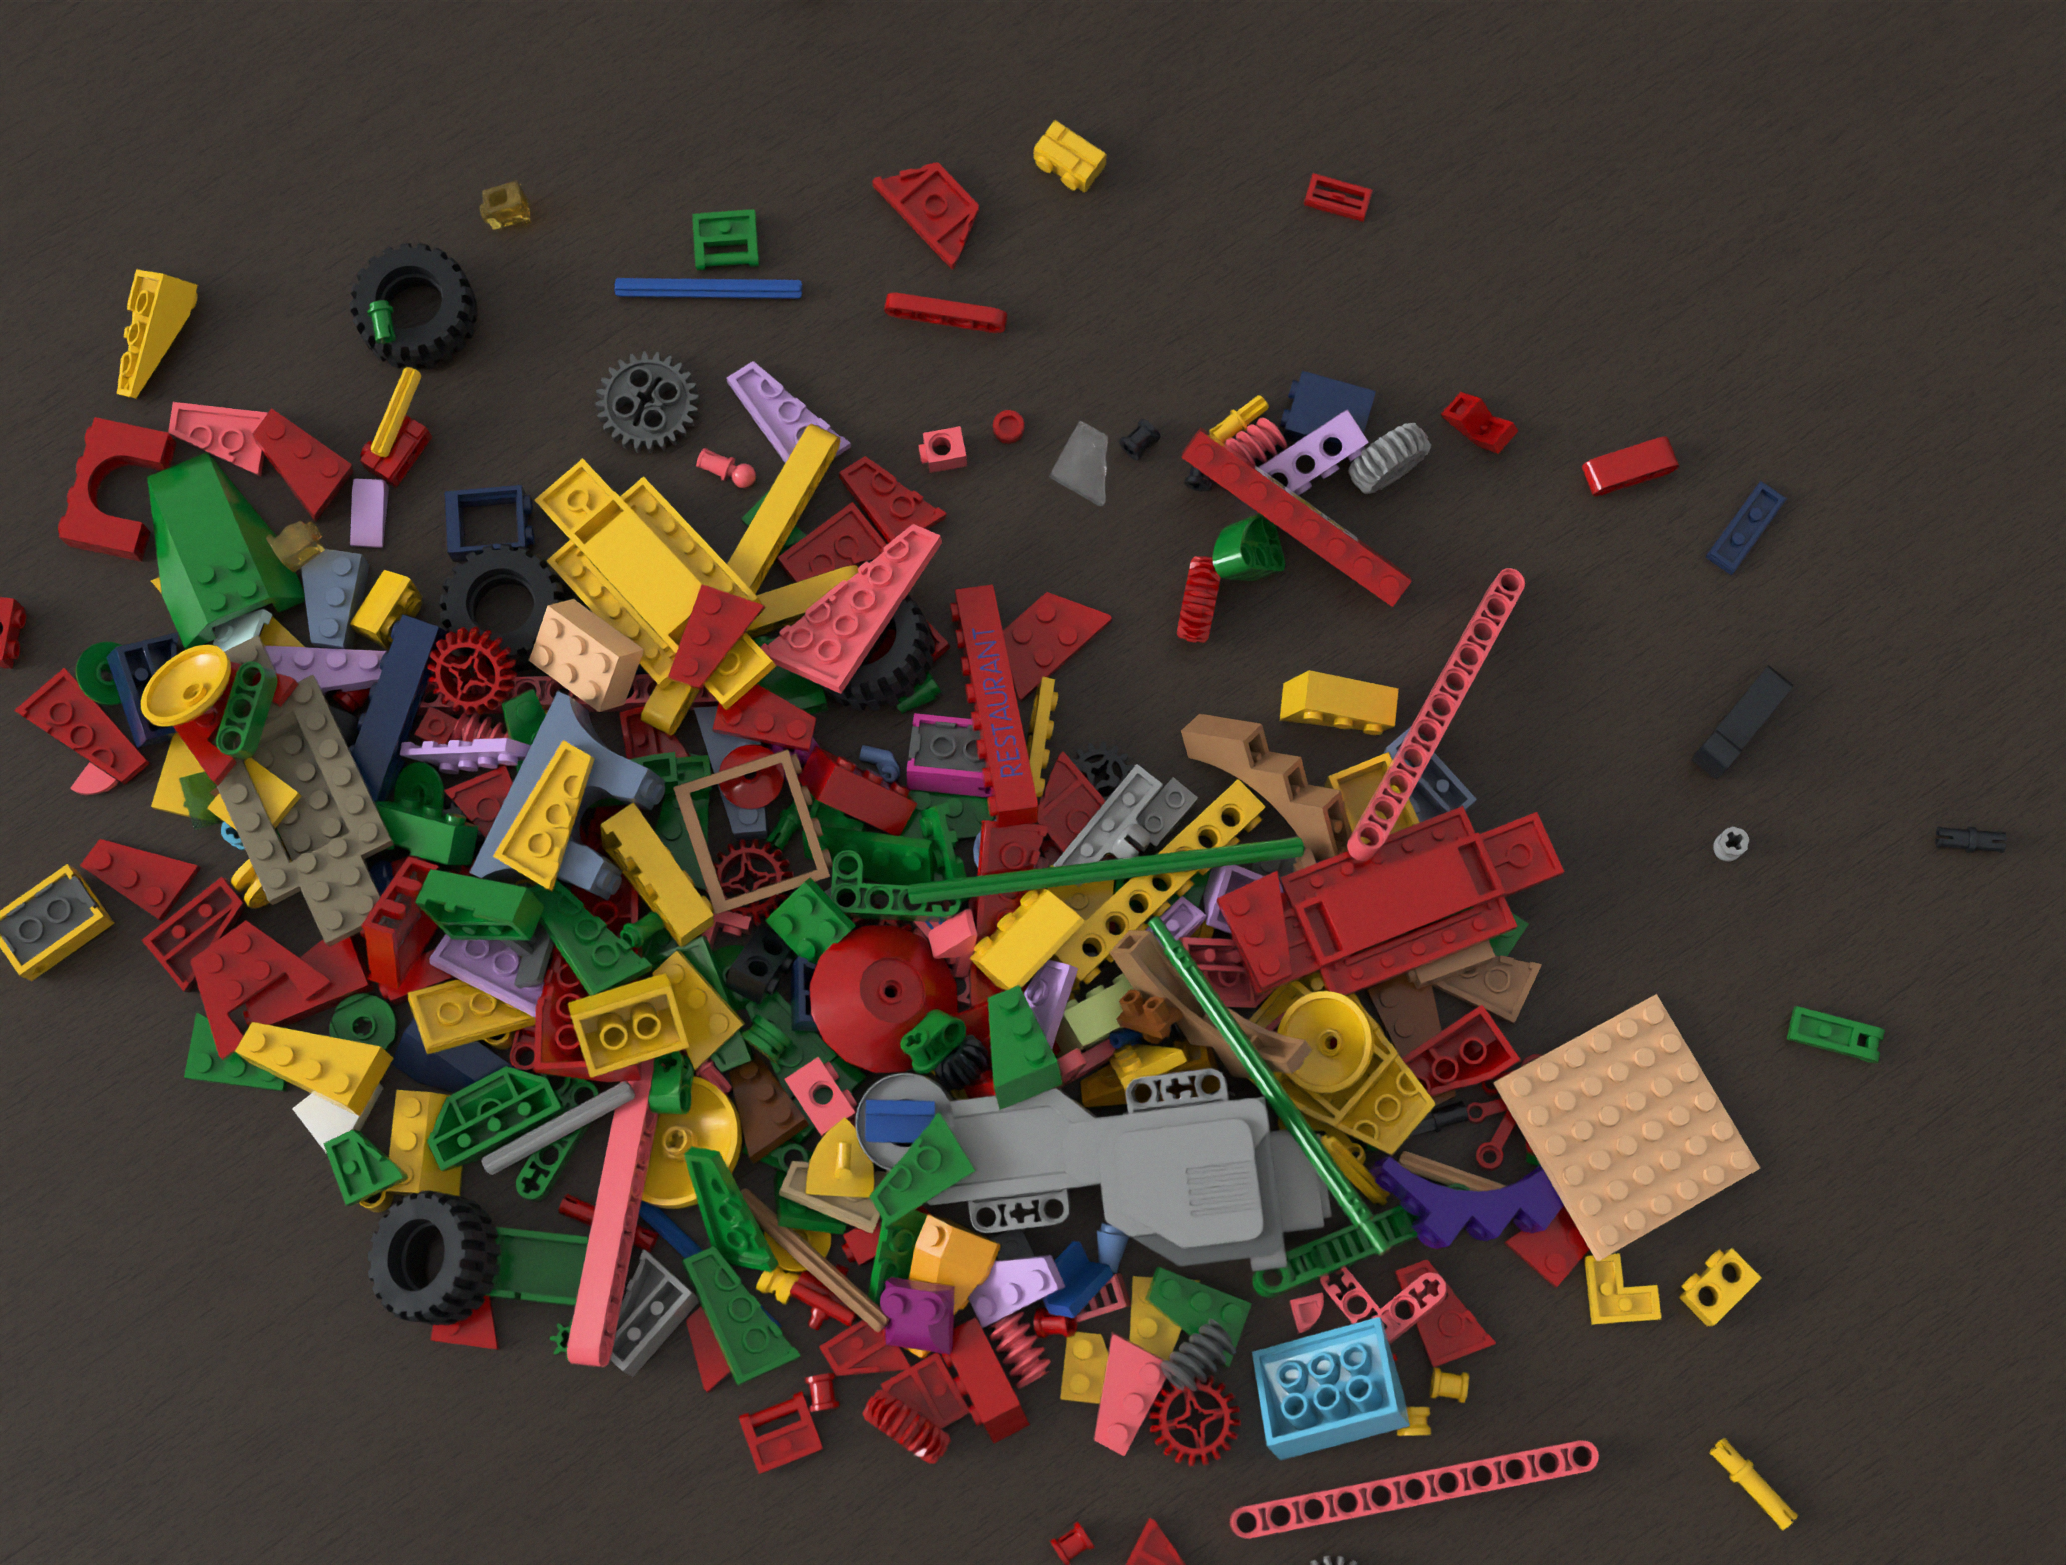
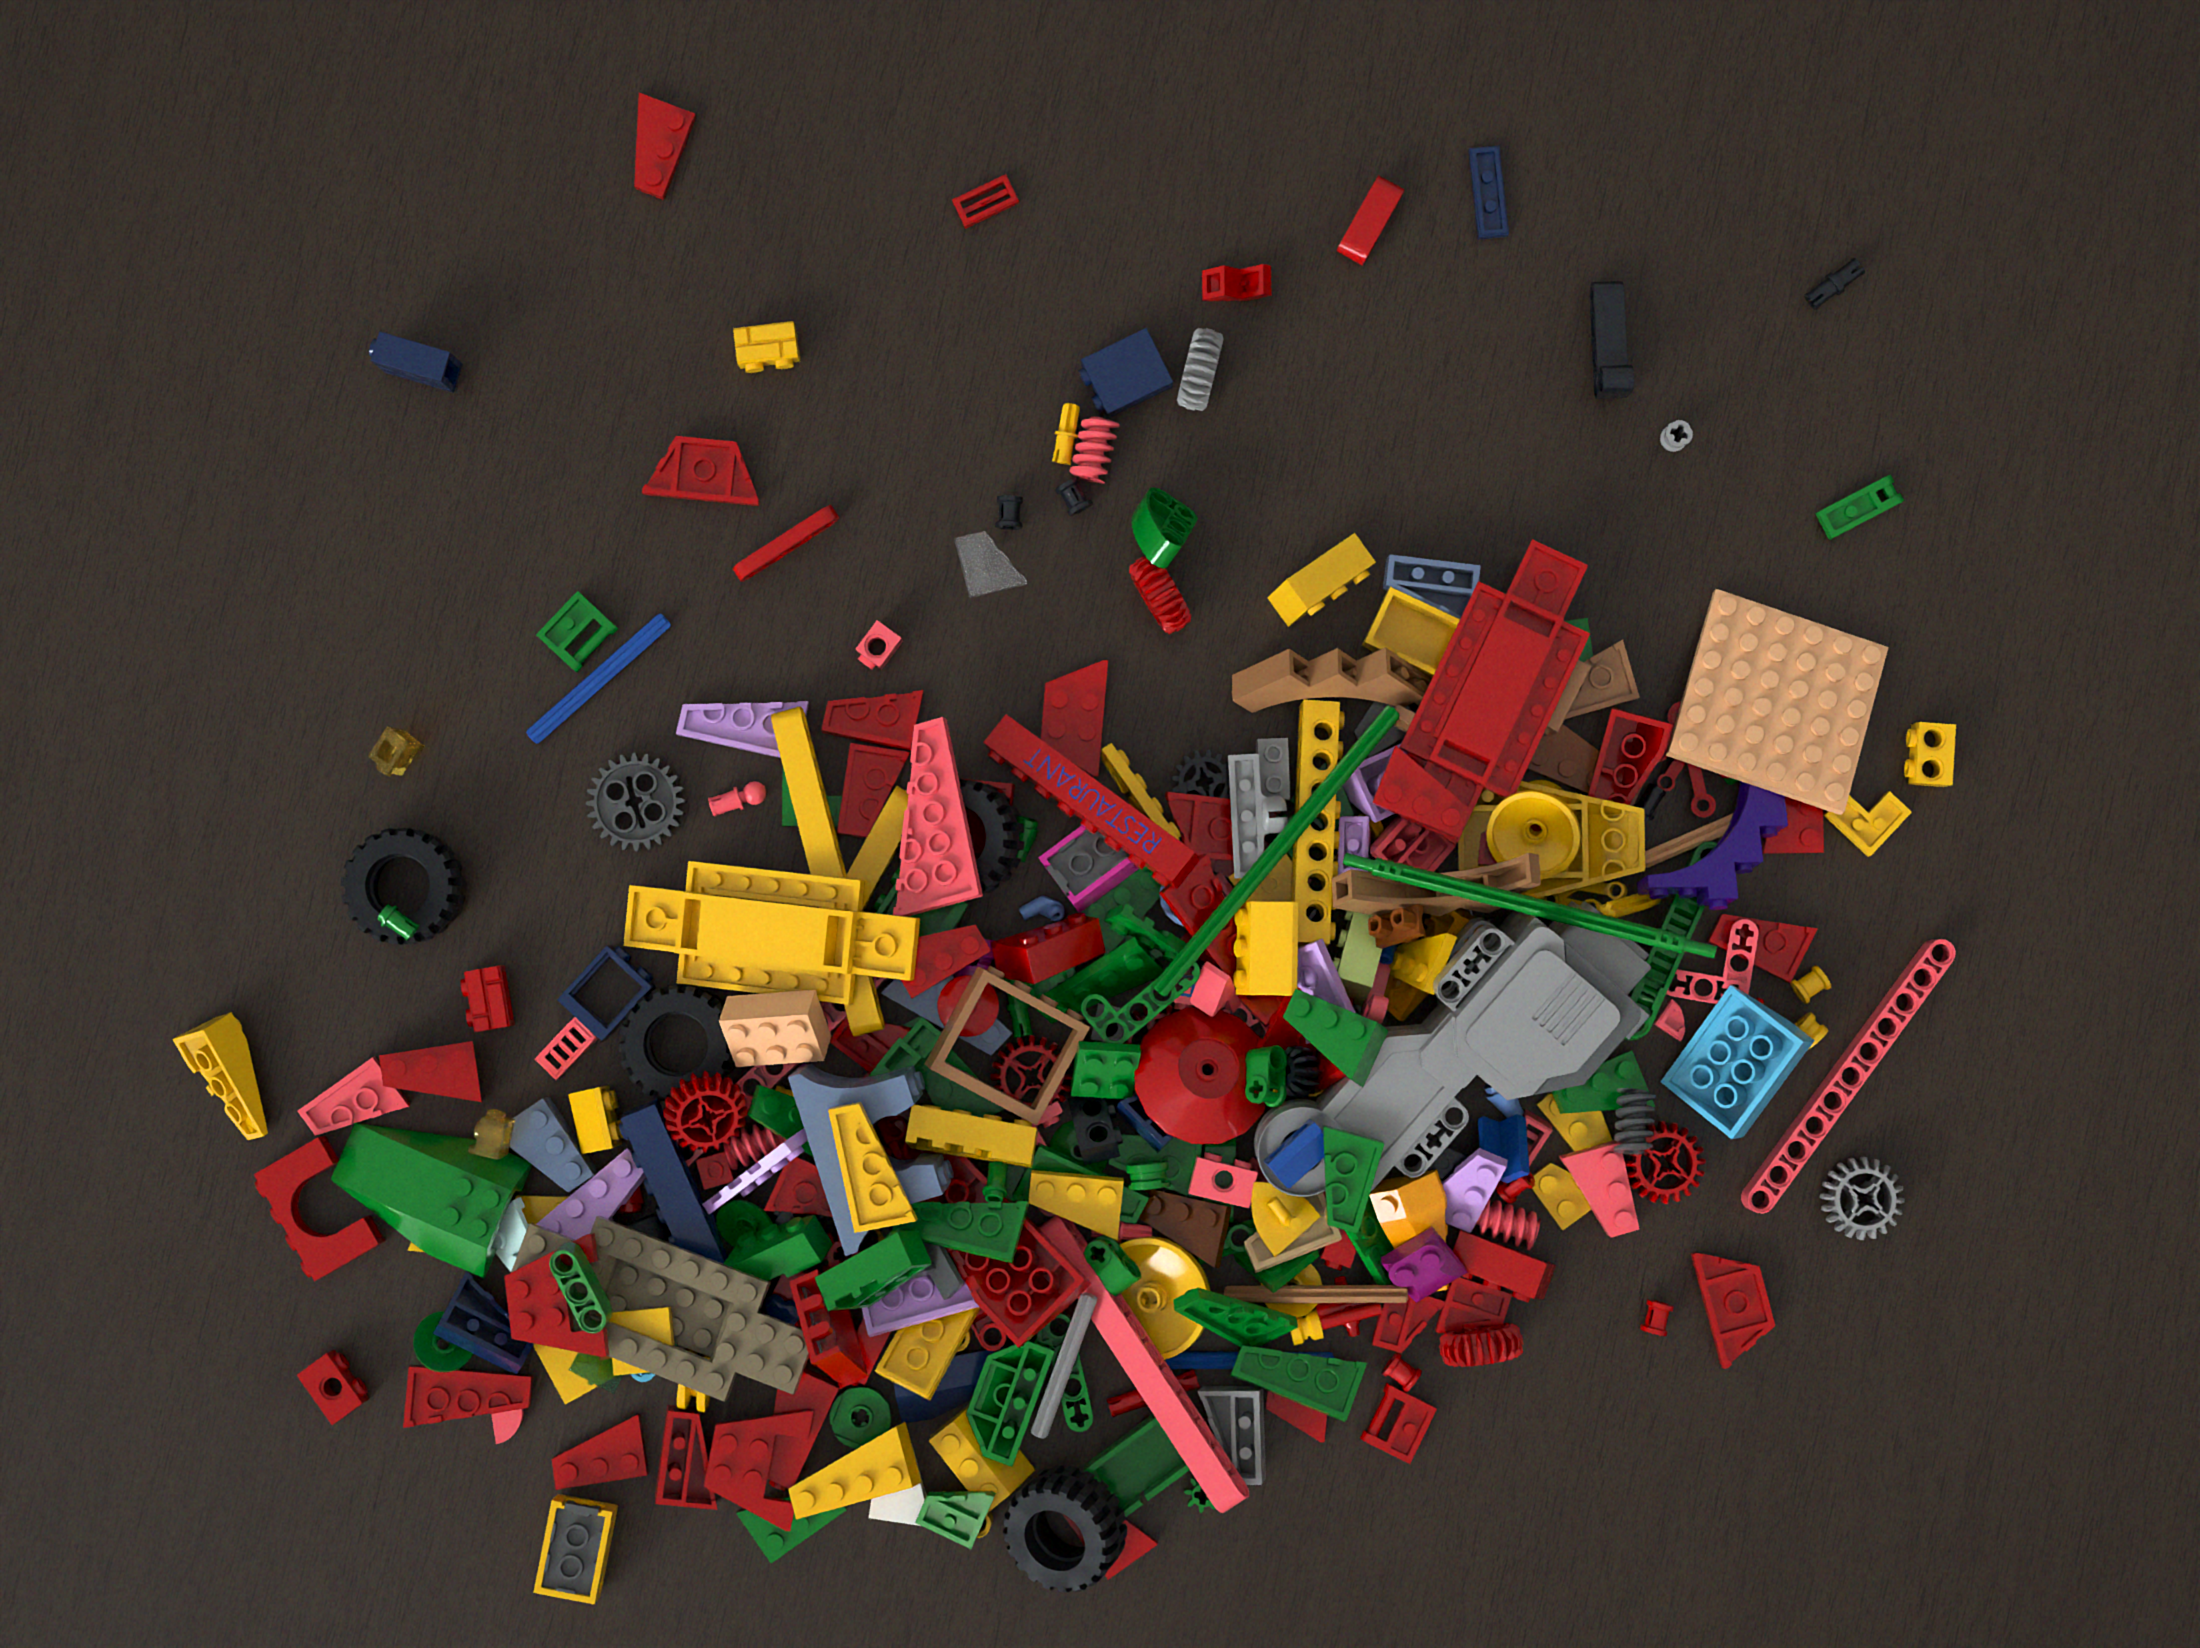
camera: 45 degrees left, 10 degrees up
(186, 686) = (524, 1311): yellow dish -> none
(368, 513) = (514, 1061): lavender slope -> none
(396, 412) = (467, 975): yellow axle -> none
(416, 527) = (558, 1040): none -> coral slope
(628, 1025) = (1054, 1259): yellow slope -> none
(710, 634) = (855, 938): red wing -> none
(1008, 426) = (907, 586): red tile -> none
(1296, 517) = (1175, 474): red brick -> none
(1342, 427) = (1147, 380): lavender brick -> none
(1430, 723) = (1397, 541): coral beam -> none
(1743, 1473) = (2052, 865): yellow pin -> none

